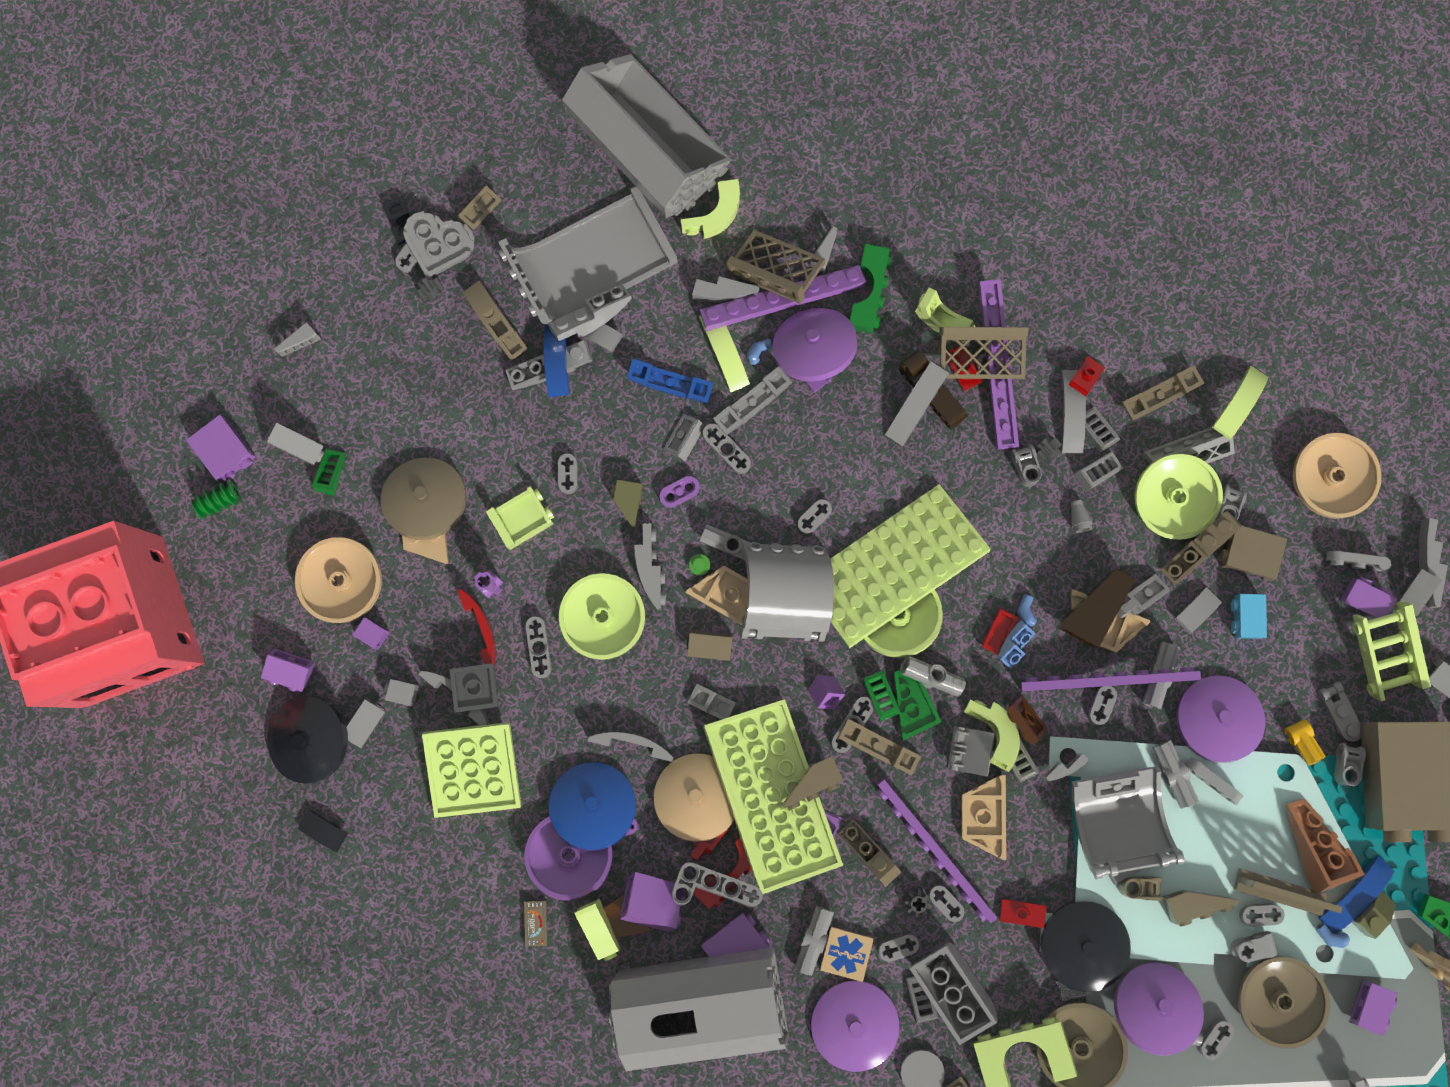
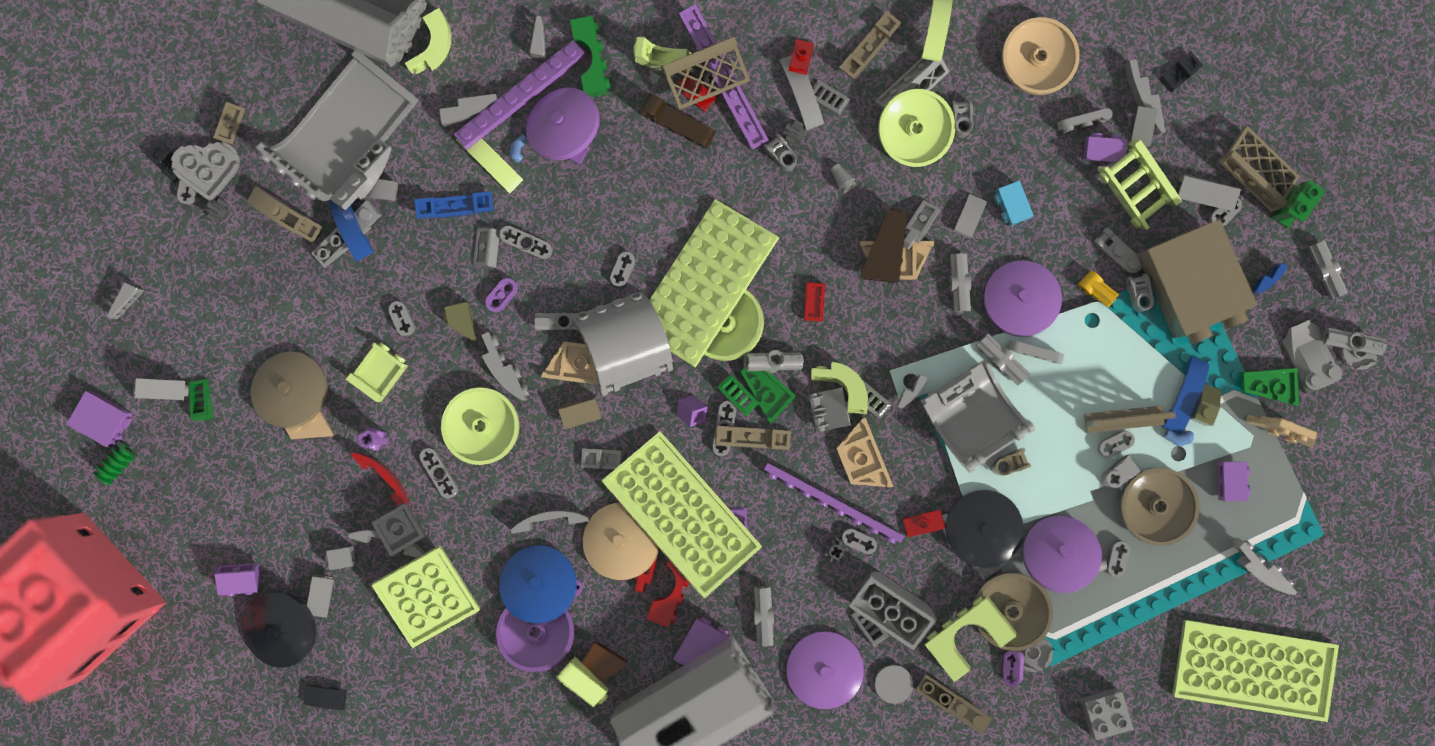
camera: 25 degrees left, 5 degrees up
(338, 580) = (247, 487): tan dish -> none
(371, 633) = (294, 520): medium lavender panel -> none
(535, 923) = (532, 697): dark tan tile -> none
(650, 902) = (619, 641): medium lavender brick -> none
(699, 564) = (543, 349): bright green plate -> none
(719, 889) = (667, 609): light grey beam -> none
(753, 401) = (531, 193): light grey slope -> none
(770, 281) = (502, 85): dark tan fence -> none
(815, 779) = (712, 484): dark tan slope -> none
(846, 954) = (795, 615): tan tile -> none
(869, 852) = (780, 527): dark tan slope -> none
(896, 942) = (838, 596): light grey beam -> none
(917, 403) = (668, 139): light grey slope -> none
(1011, 649) = (830, 313): medium blue slope -> none
(1024, 611) = (828, 277): medium blue arm -> none
(1026, 719) = (864, 365): reddish brown plate -> none
(1087, 478) = (836, 143): light grey slope -> none
(1107, 706) = (917, 326): light grey beam -> none
(1119, 678) = (926, 300): medium lavender plate -> none
(1187, 905) = (1054, 460): dark tan slope -> none
(1201, 547) = (952, 163): dark tan slope -> none
(1254, 553) = (996, 148): dark tan panel -> none
(1321, 854) = (1145, 375): nougat wedge -> none

